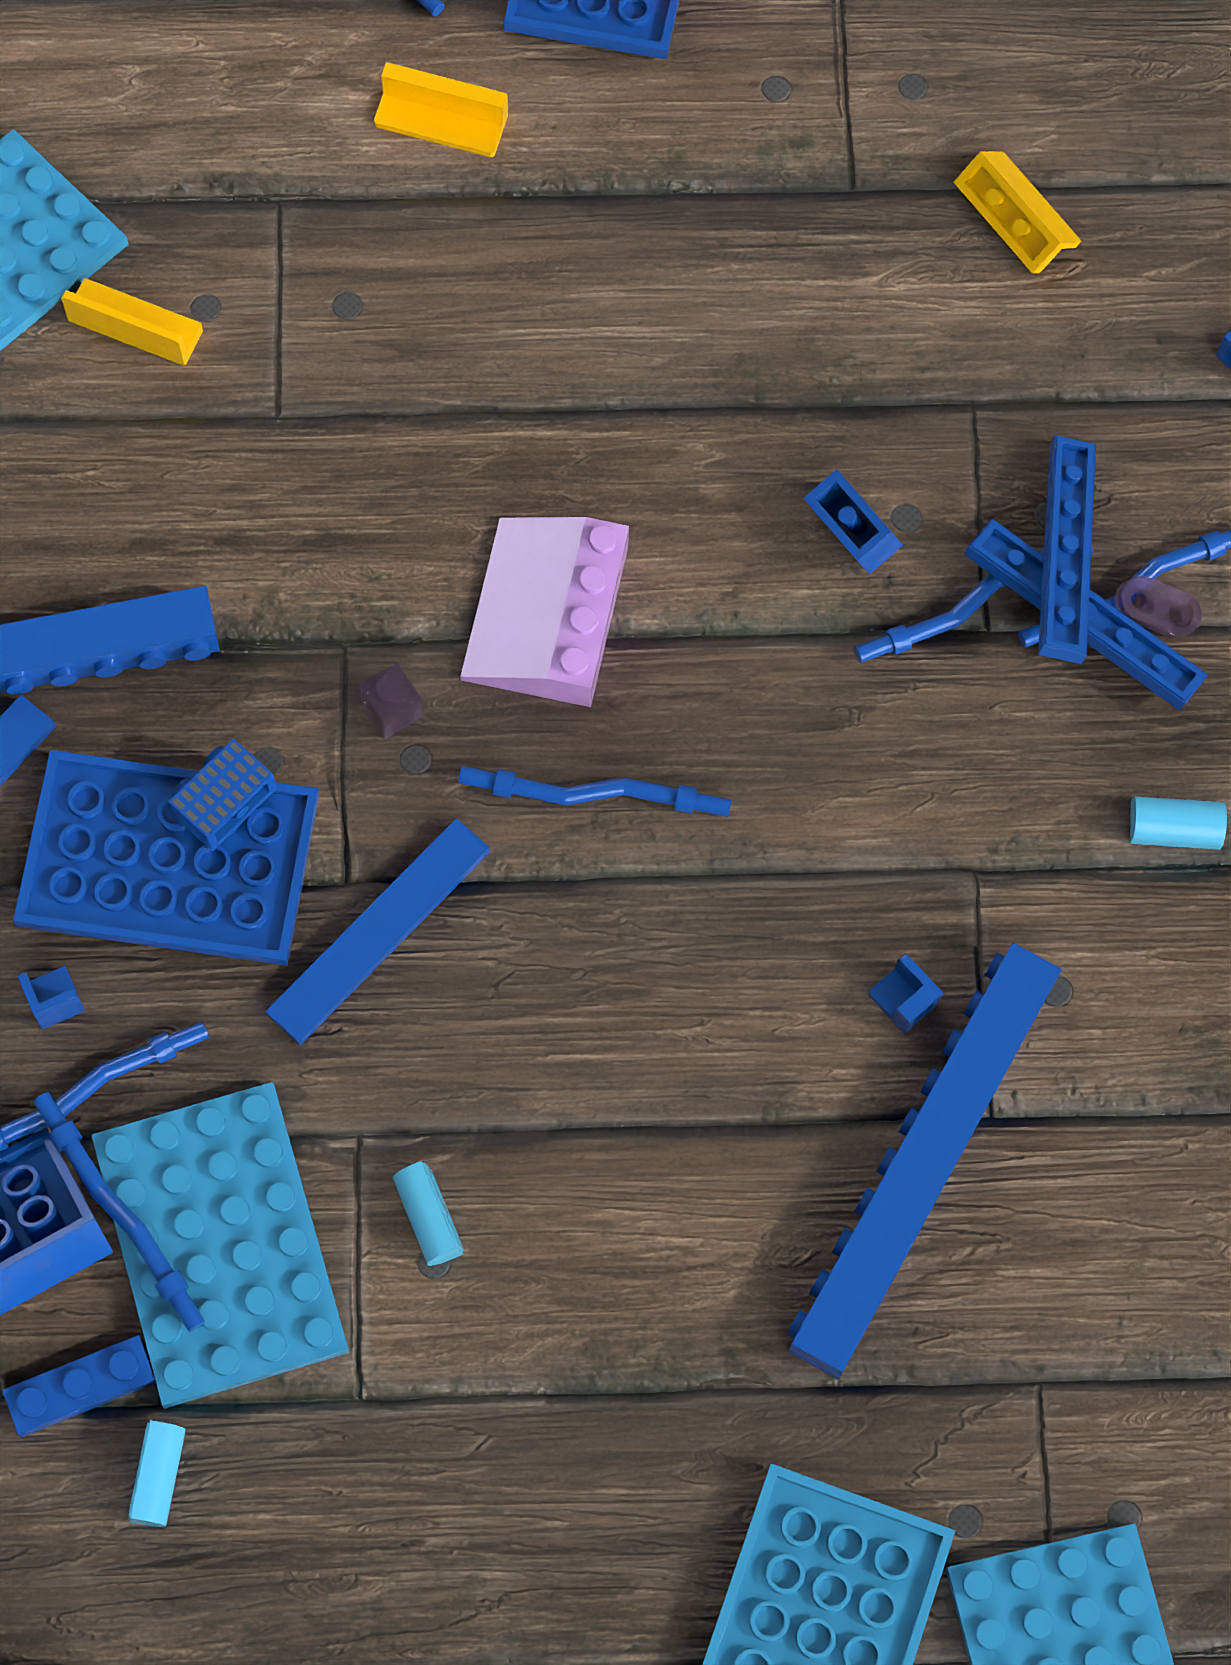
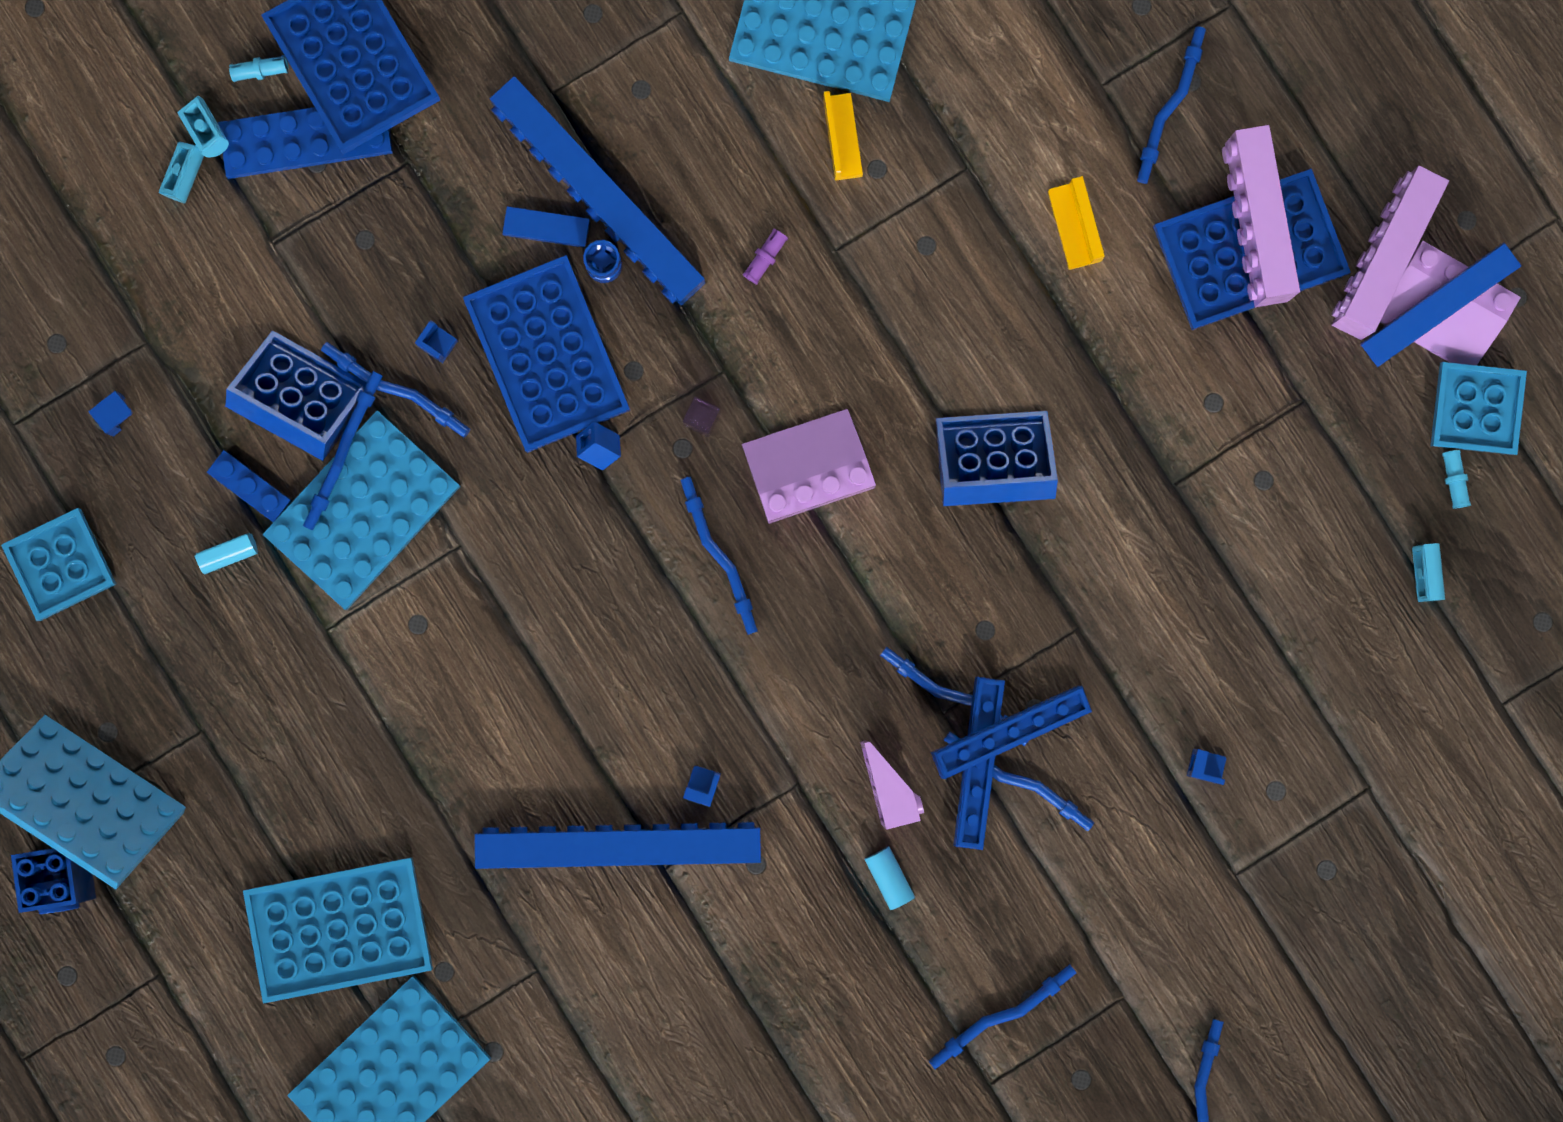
camera: 60 degrees right, 15 degrees up
(92, 705) = (602, 261): none -> blue wheel
(221, 794) = (591, 362): blue brick -> none
(227, 502) = (765, 256): none -> medium lavender pin
(341, 861) = (598, 446): none -> blue panel
(377, 932) = (573, 488): blue tile -> none
(428, 1213) = (437, 608): medium azure brick -> none
(687, 371) = (996, 458): none -> blue slope
(853, 521) = (956, 604): blue brick -> none
(1015, 209) = (1215, 585): yellow panel -> none
(1054, 726) = (893, 797): none -> lavender slope
(1155, 605) = (1008, 798): clear purple plate -> none

